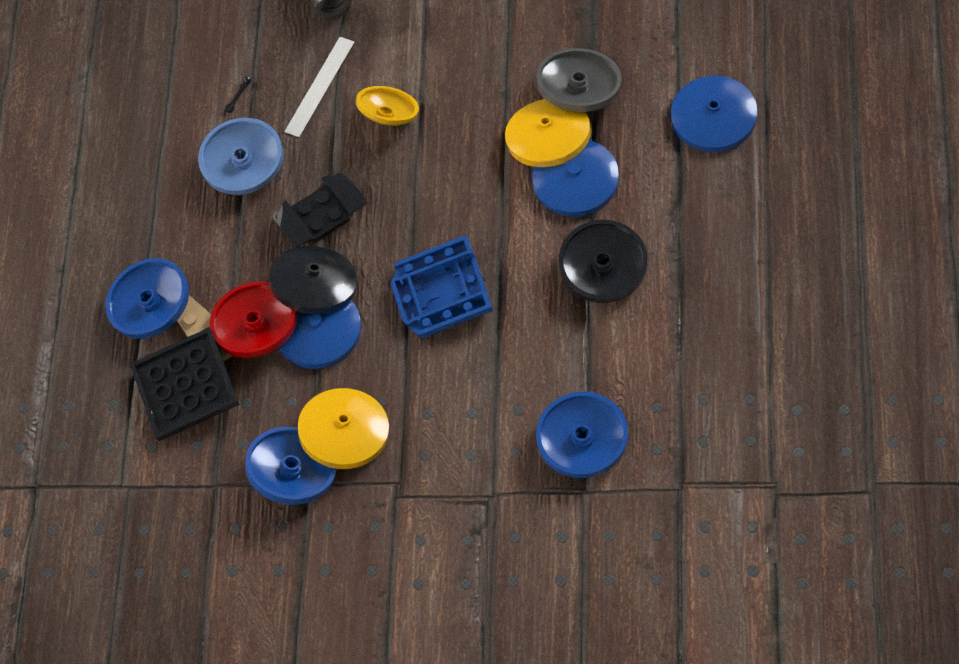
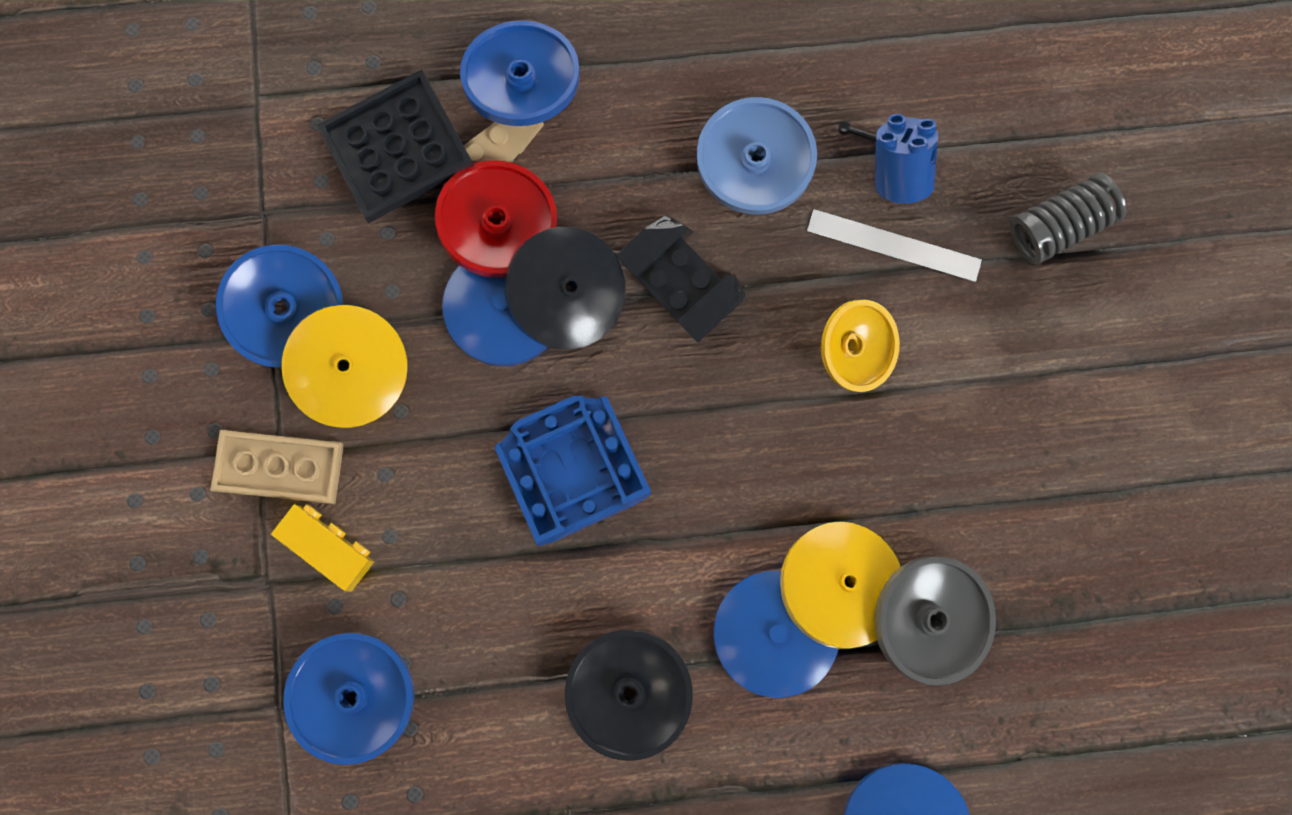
camera: 70 degrees right, 20 degrees up
(264, 63) = (906, 159): none -> blue cylinder
(409, 483) = (277, 467): none -> tan tile
(473, 450) = (323, 546): none -> yellow brick

